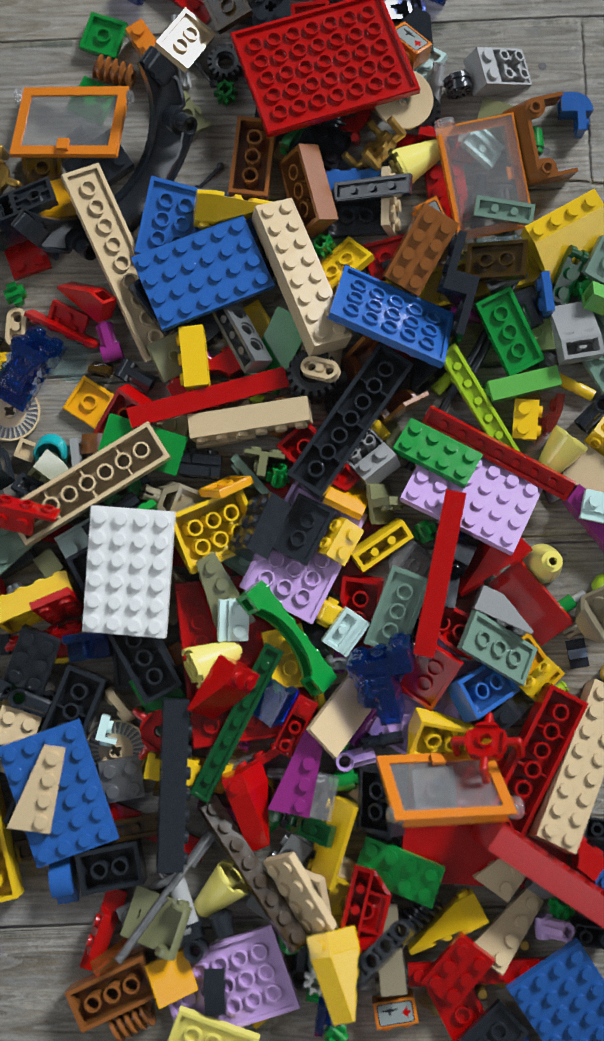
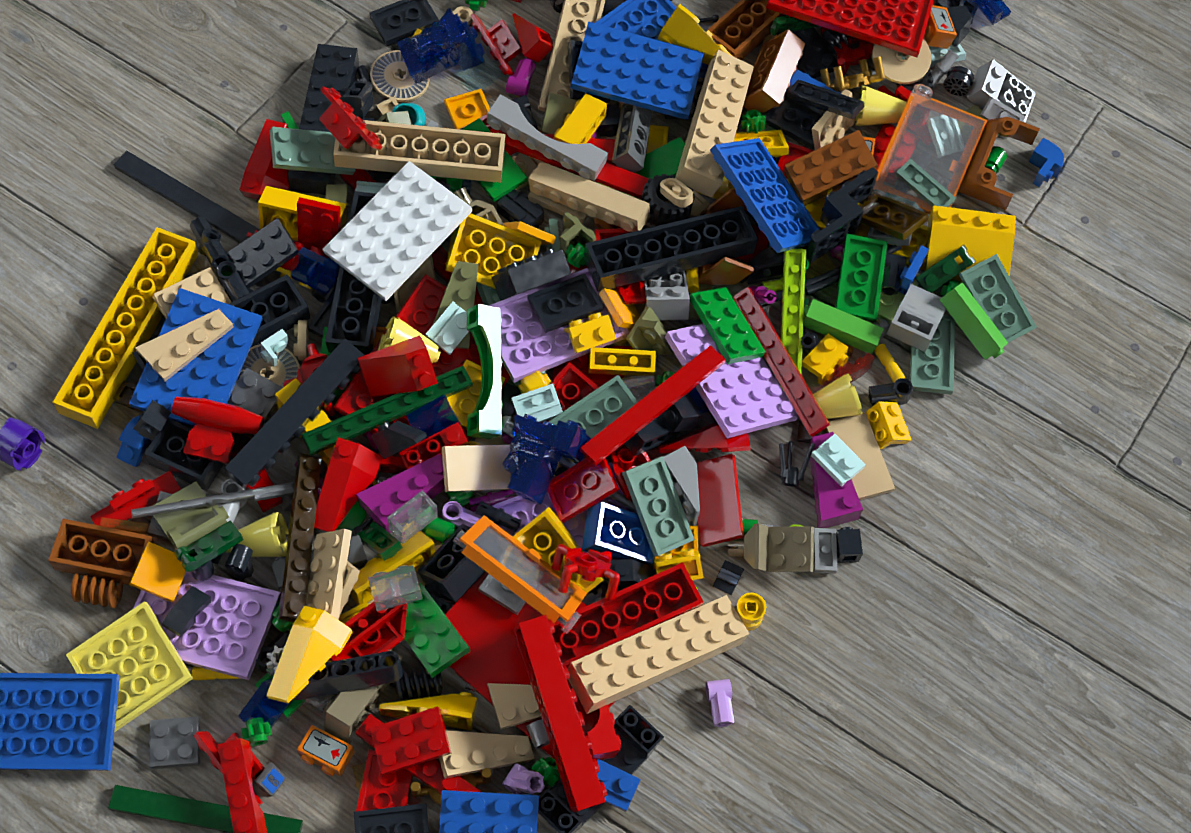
camera: 25 degrees right, 20 degrees down
(67, 869) = (152, 420): none -> black brick
(101, 369) = (494, 91): dark brown slope -> none
(119, 839) = (214, 426): none -> red plate
(138, 401) = (582, 158): none -> light grey arch
(194, 937) = (209, 546): none -> dark green plate
(263, 741) = (396, 437): none -> black slope
(360, 870) = (395, 587): none -> clear brick
(442, 402) = (763, 294): none -> magenta pin
(506, 416) = (813, 336): none -> black pin
(513, 93) = (996, 109): none -> light grey plate
(544, 562) = (755, 479): light yellow cone -> none
(568, 540) = (790, 474): none -> black plant

